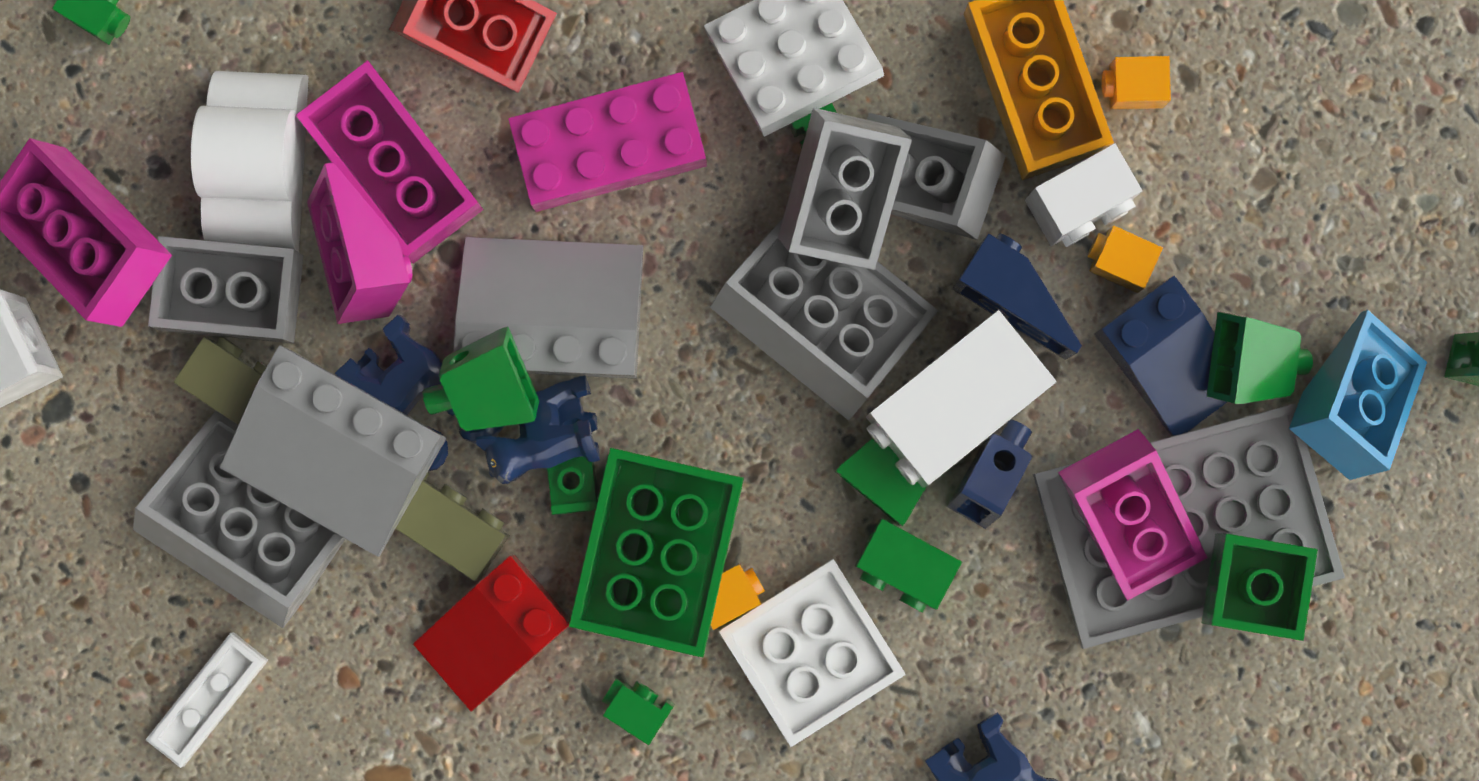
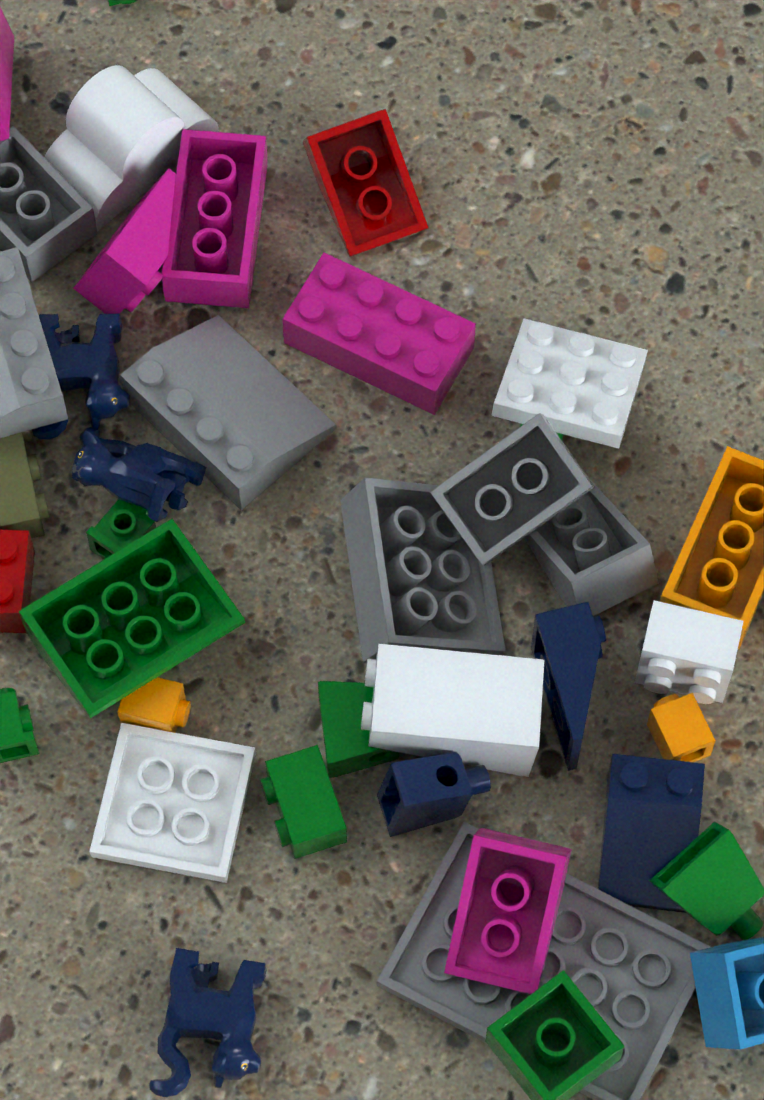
camera: 40 degrees right, 20 degrees down
(485, 385) = (129, 399): green torso -> none

